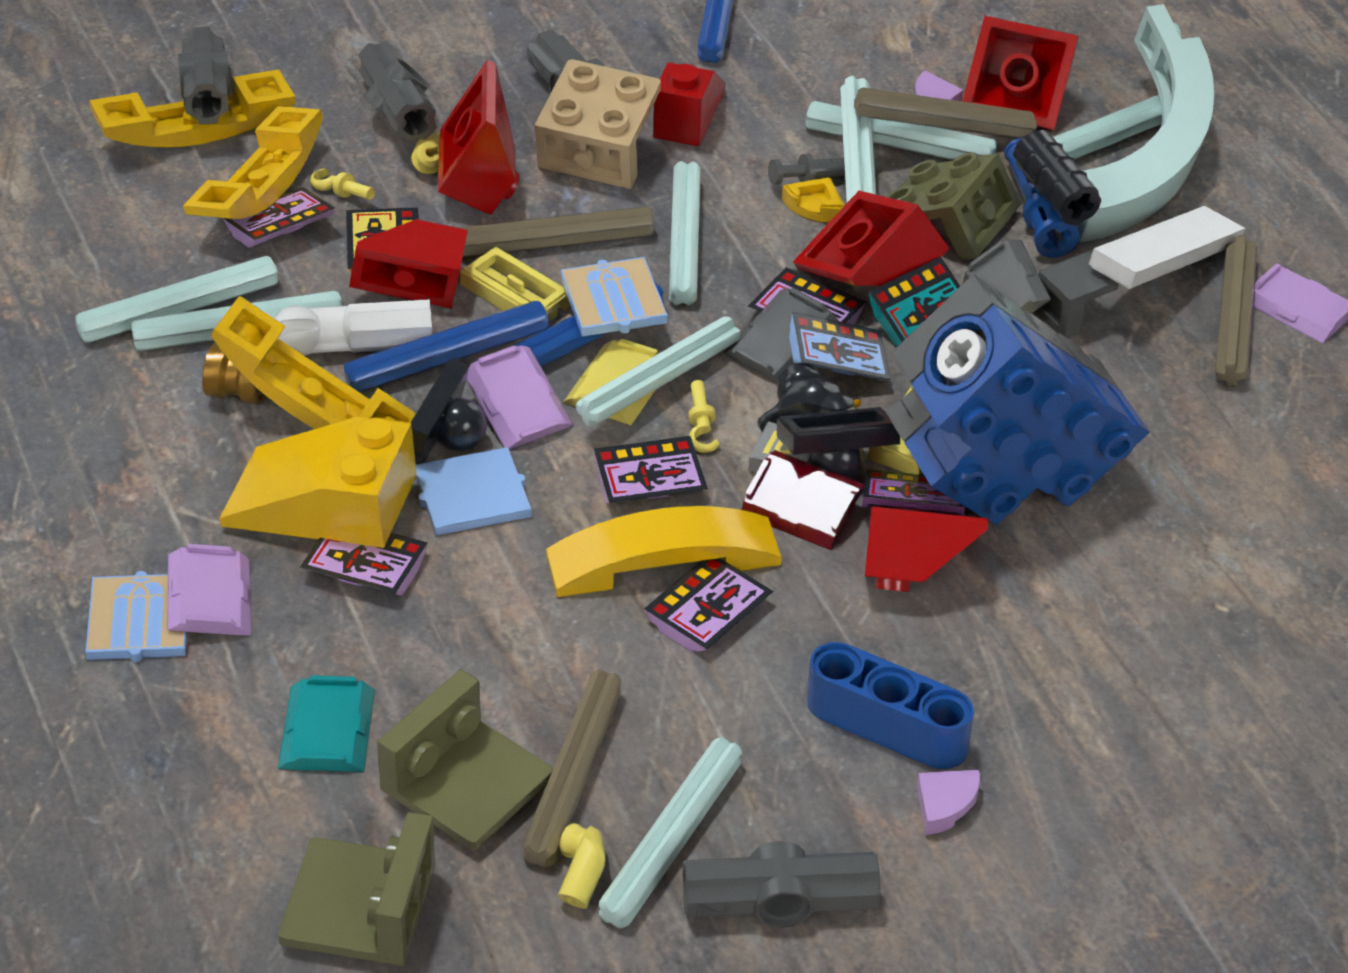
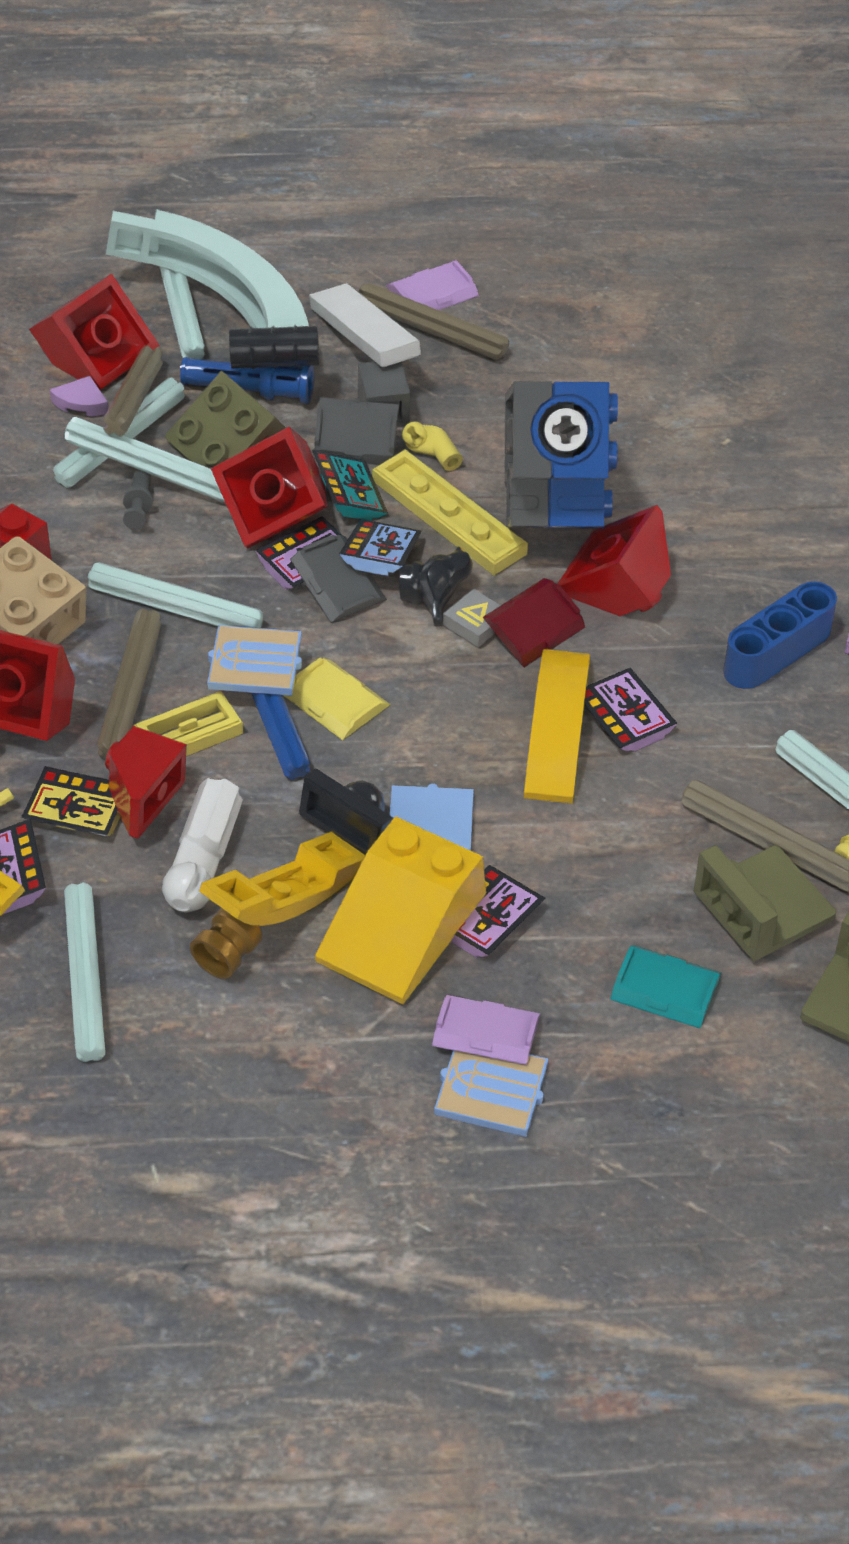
camera: 70 degrees left, 5 degrees up
(198, 325) = (138, 934): light aqua axle -> none
(443, 346) = (255, 791): blue axle -> none
(517, 396) = (341, 758): lavender piece -> none
(649, 469) = (461, 705): piece -> none
(657, 371) = (356, 661): light aqua axle -> none
(701, 417) = (411, 654): light yellow hand -> none
(813, 199) = (174, 509): yellow tile -> none
(837, 437) = (497, 568): black tile -> none
(906, 491) = (554, 555): piece -> none

